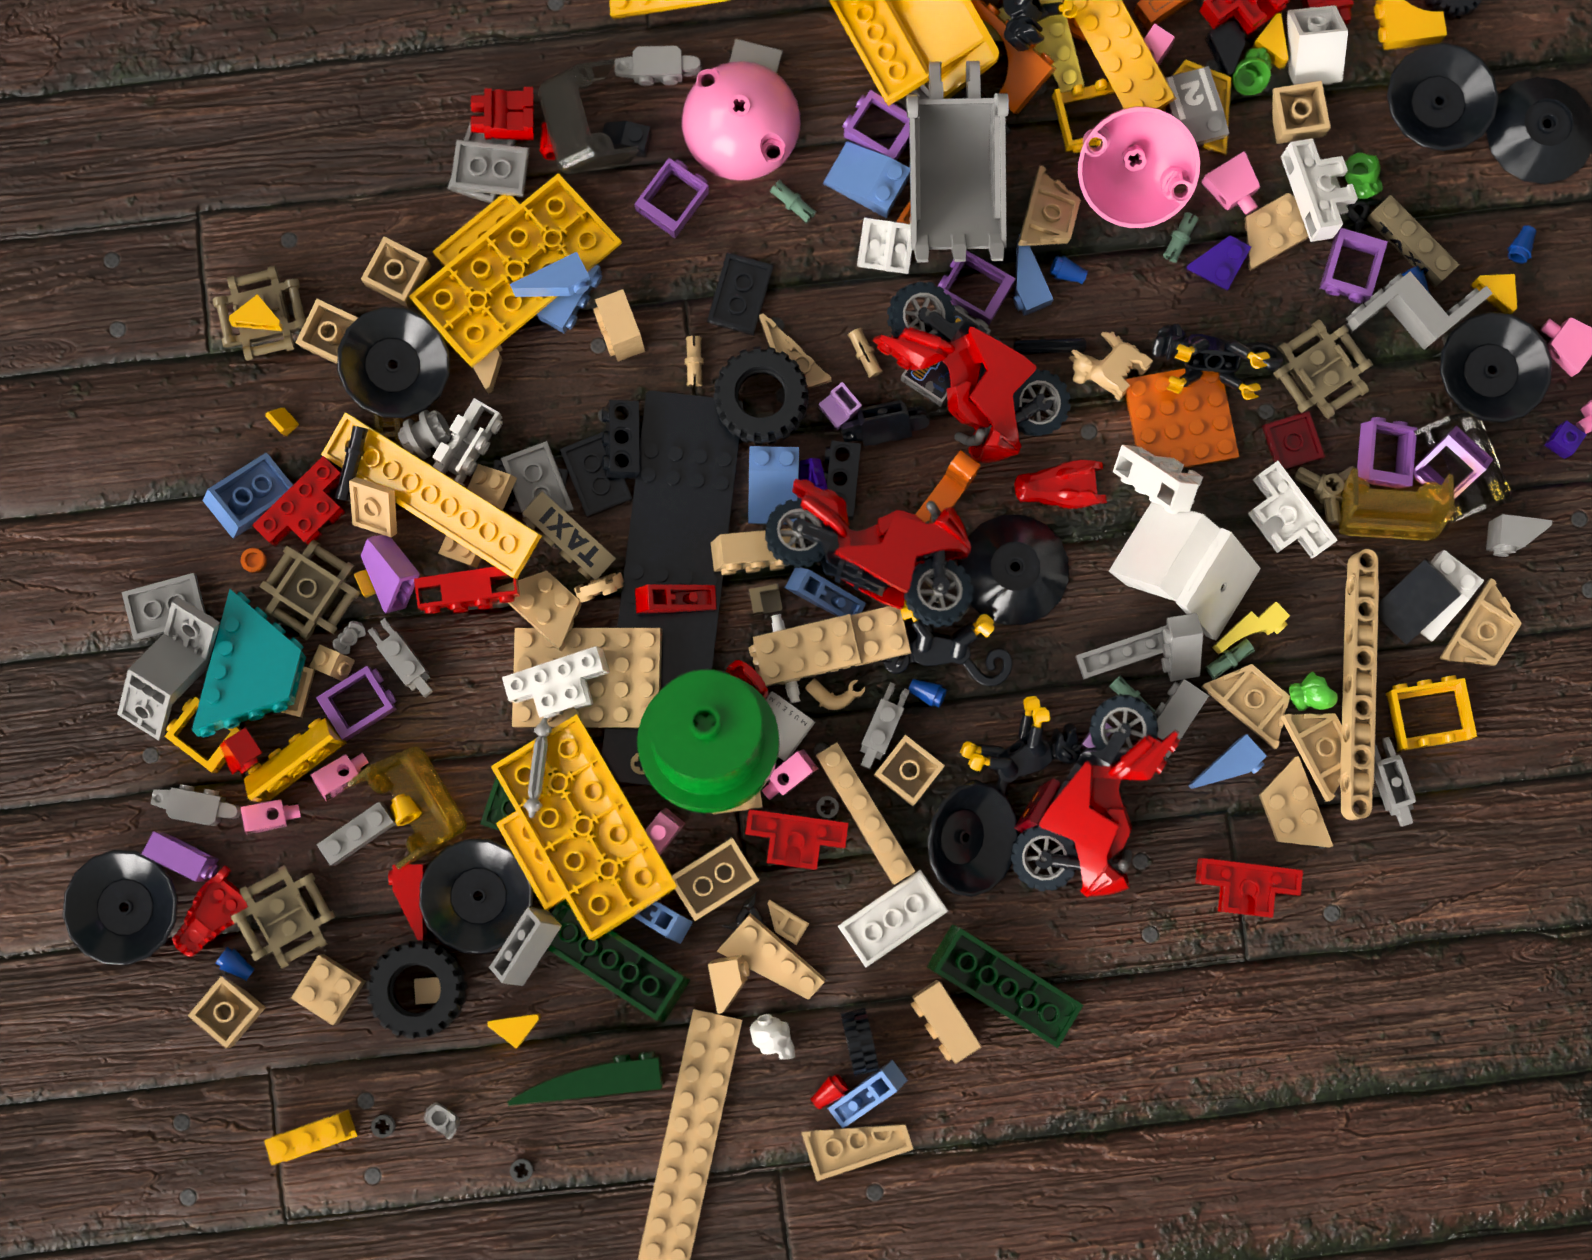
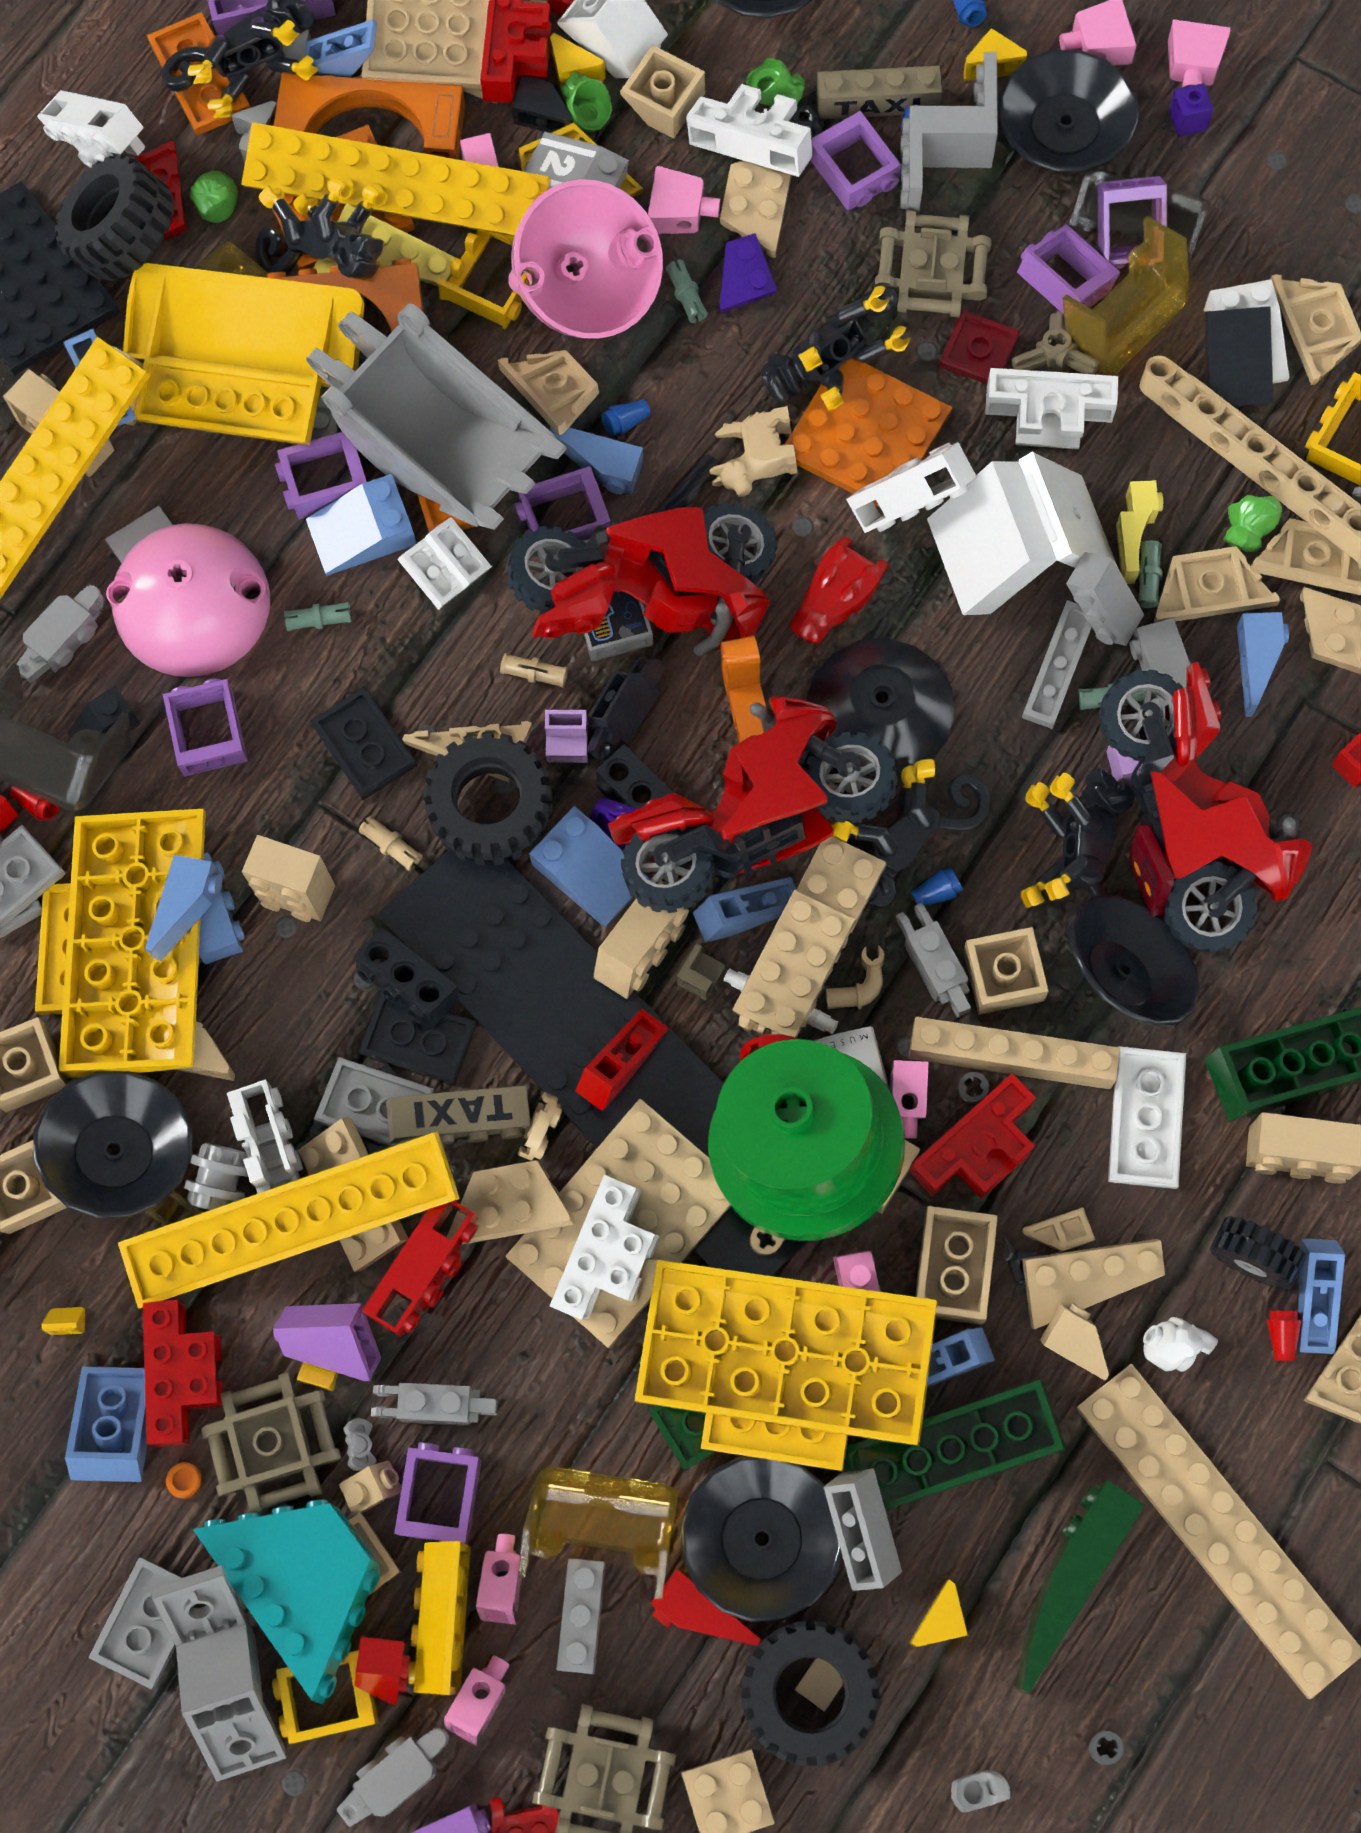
camera: 45 degrees left, 10 degrees down
(352, 458) = (174, 1273): black pin -> none
(373, 507) = (245, 1295): tan plate -> none
(404, 810) = (599, 1540): yellow hat -> none
(537, 767) = (680, 1347): light grey wheel -> none
(1511, 533) = (1245, 220): light grey slope -> none

